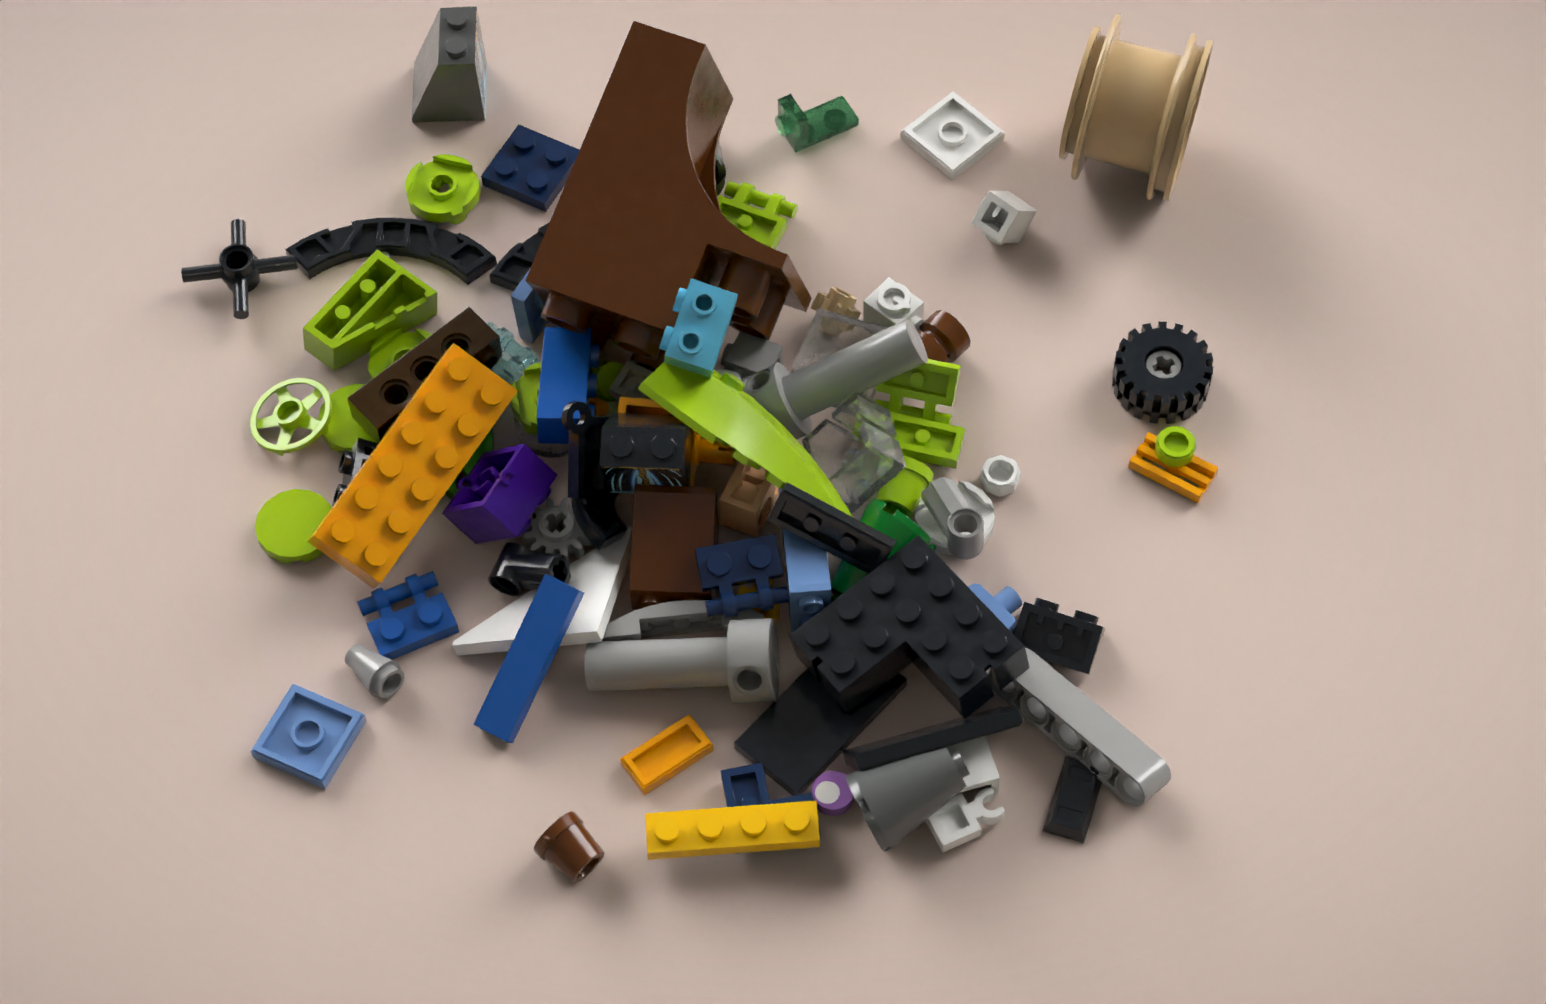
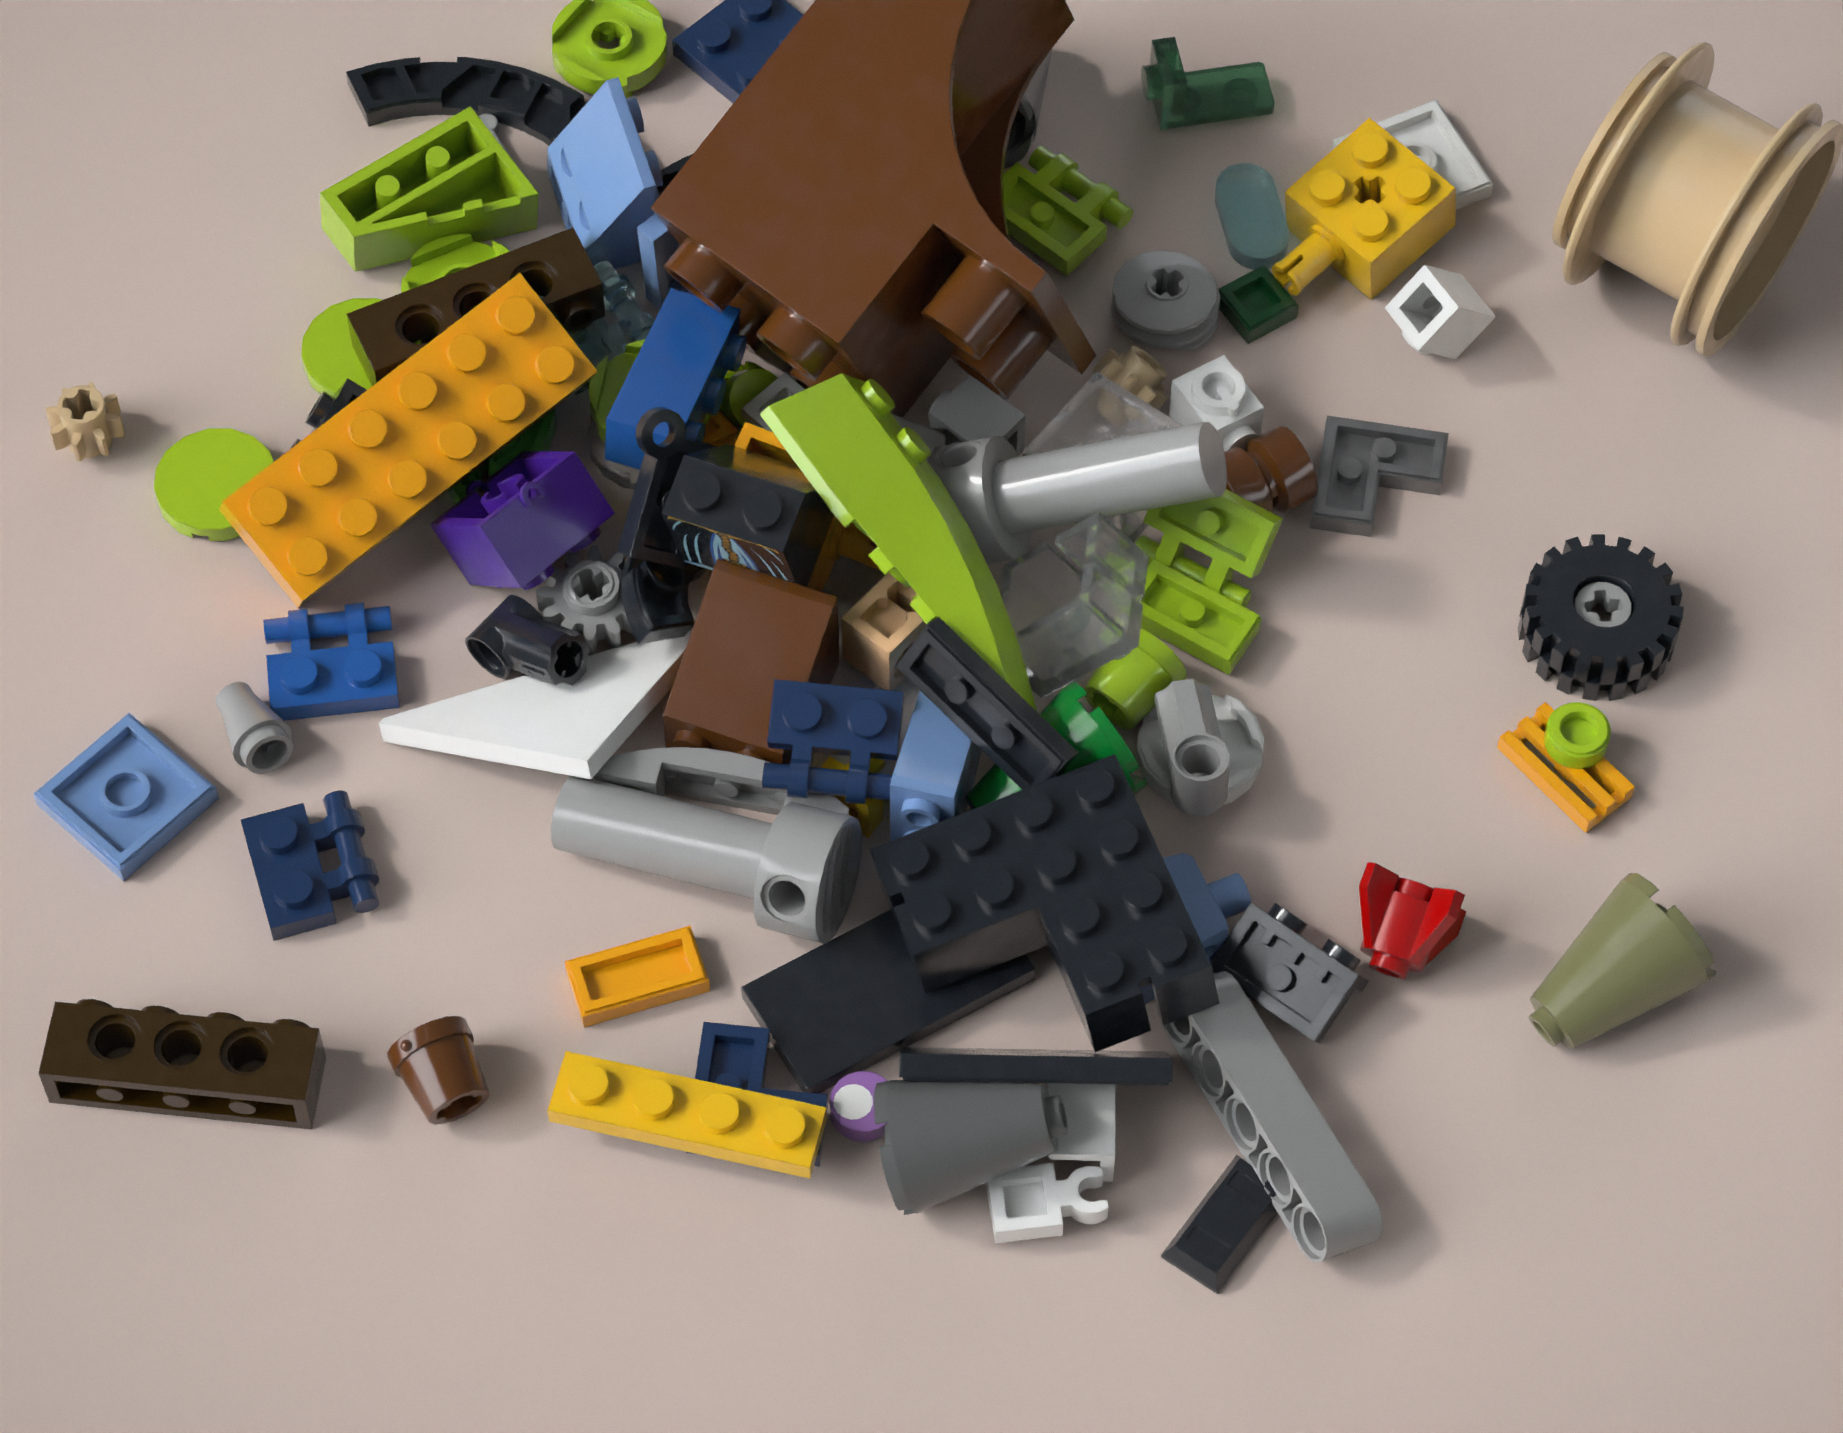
camera: 15 degrees right, 0 degrees up
(200, 510) = (85, 421): none -> tan gear
(239, 268) = (268, 82): black bar -> none
(290, 415) = (266, 319): lime wheel -> none
(428, 752) = (289, 869): none -> dark blue plate
(429, 902) = (210, 1087): none -> dark brown brick
(478, 269) = (605, 176): none -> medium blue slope
(528, 658) = (477, 773): blue tile -> none
(698, 328) = (878, 346): medium azure brick -> none
(837, 254) = (1166, 300): none -> light grey piece
(868, 190) = (1251, 216): none -> clear light blue tile
(890, 241) = (1257, 304): none -> dark green tile
(938, 169) = (1364, 213): none -> yellow brick
(989, 316) = (1371, 455): none -> flat silver tile
(1000, 475) = (1291, 704): white tile -> none
(1116, 586) = (1405, 921): none -> red brick
(1252, 576) = (1620, 967): none -> olive cone

